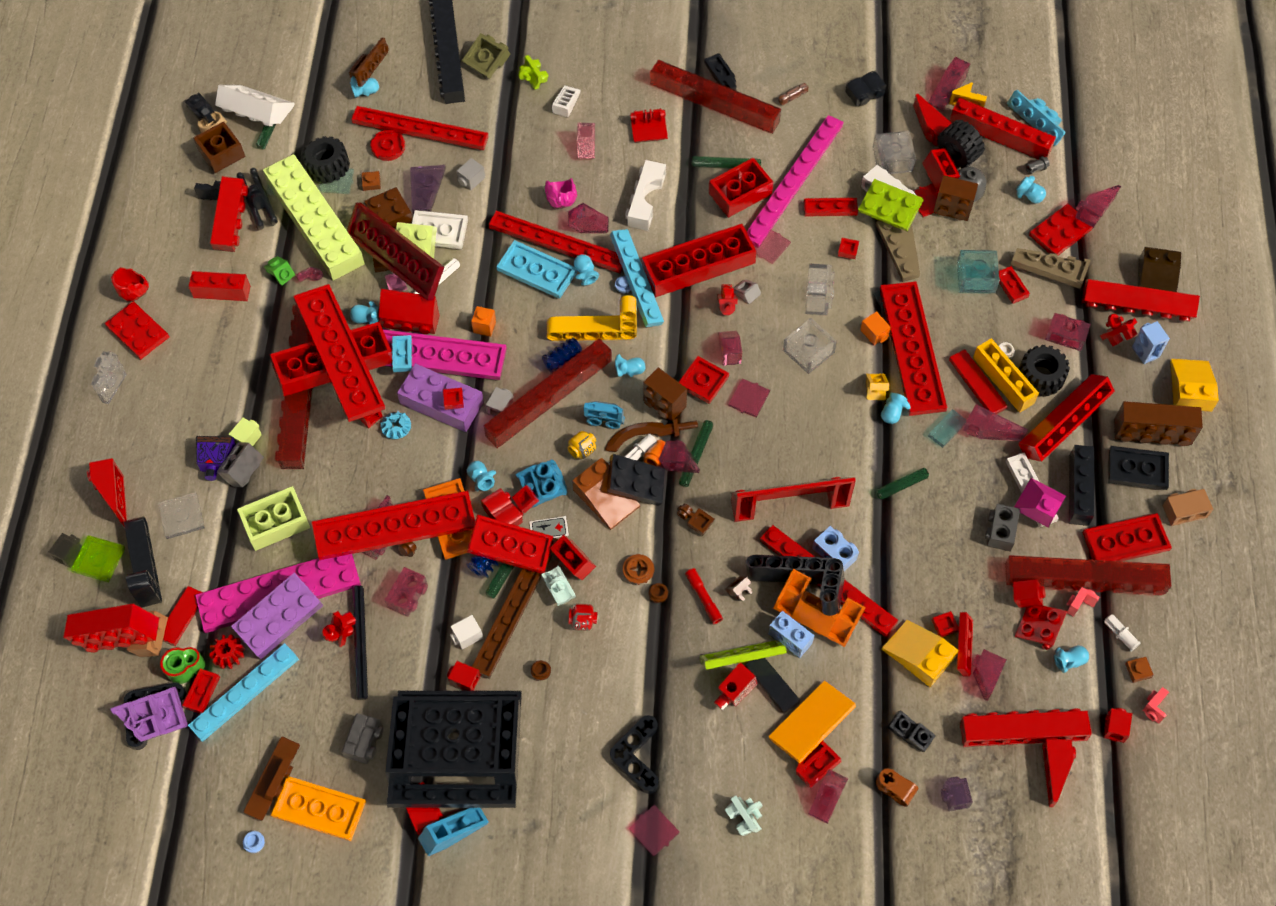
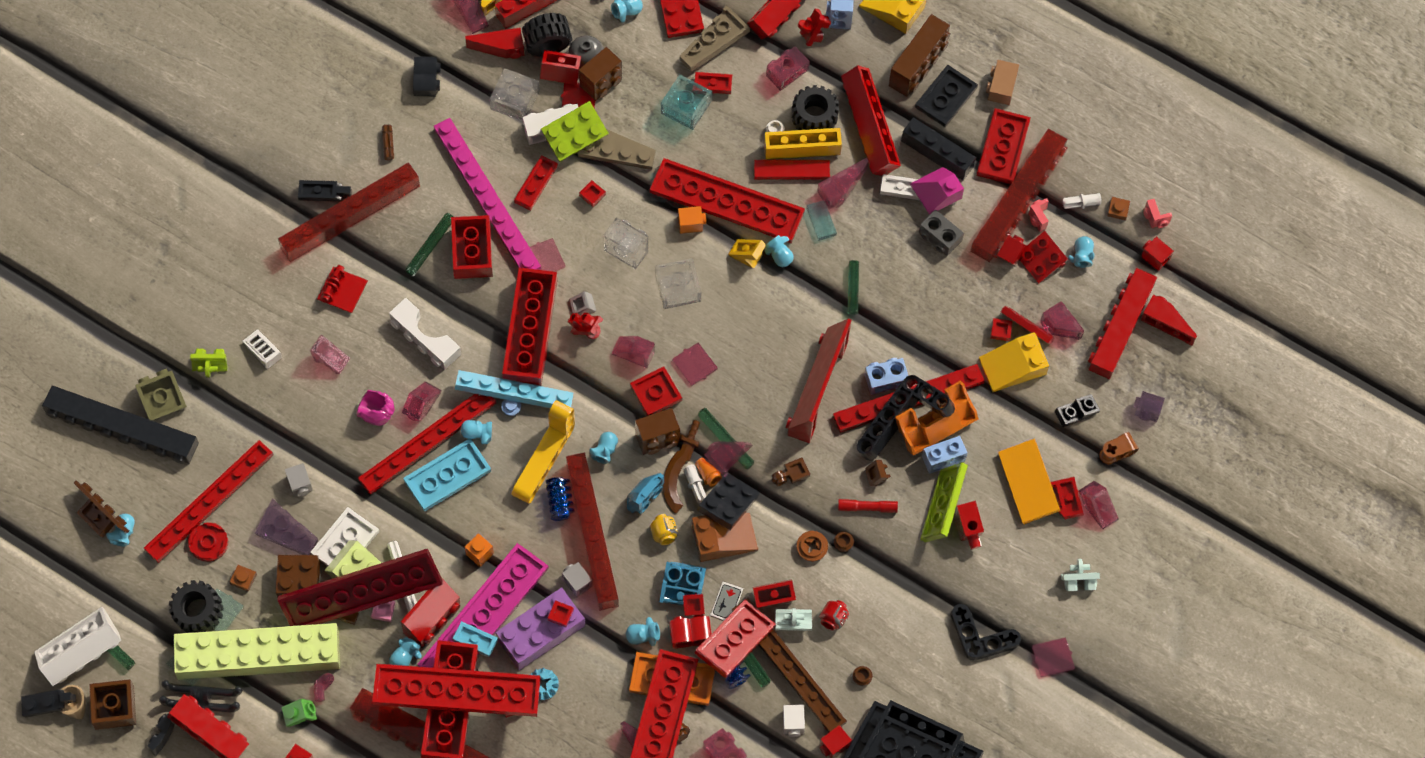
camera: 65 degrees left, 5 degrees up
(773, 684) = (983, 493): black tile -> none

